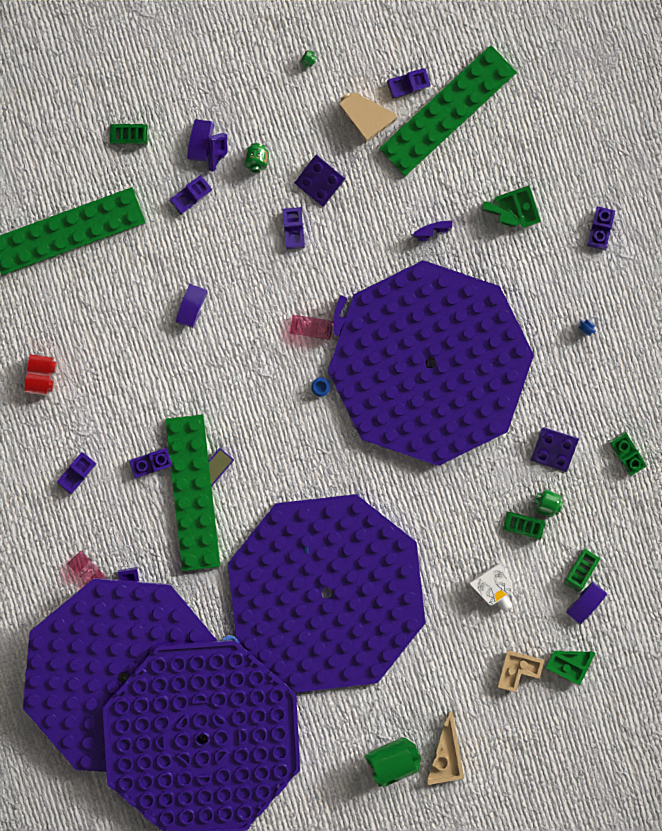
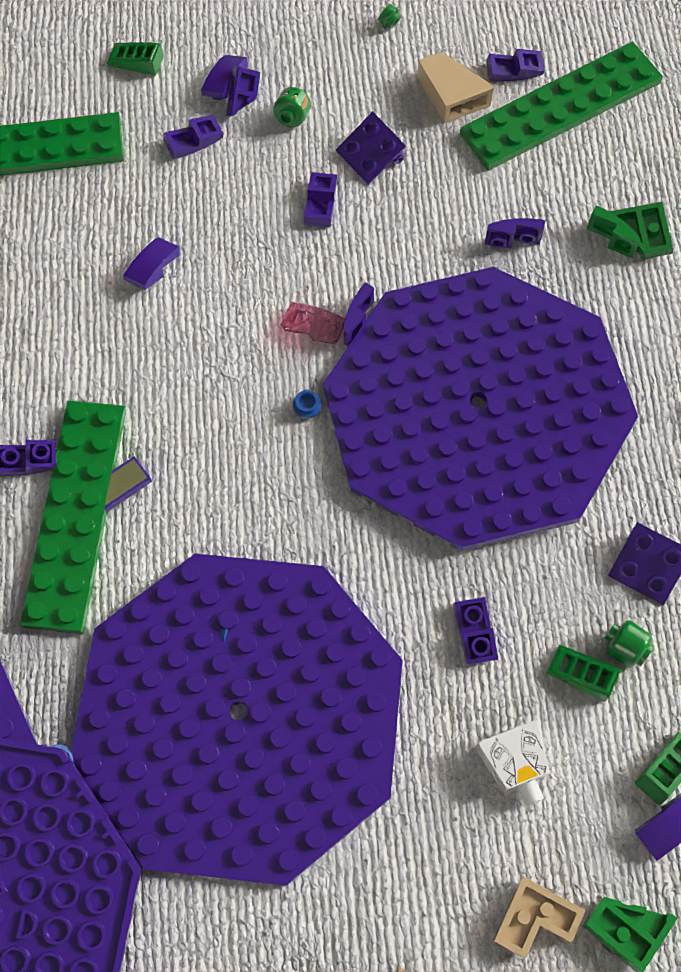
camera: 15 degrees right, 20 degrees down
(456, 513) = (475, 630): none -> dark purple slope

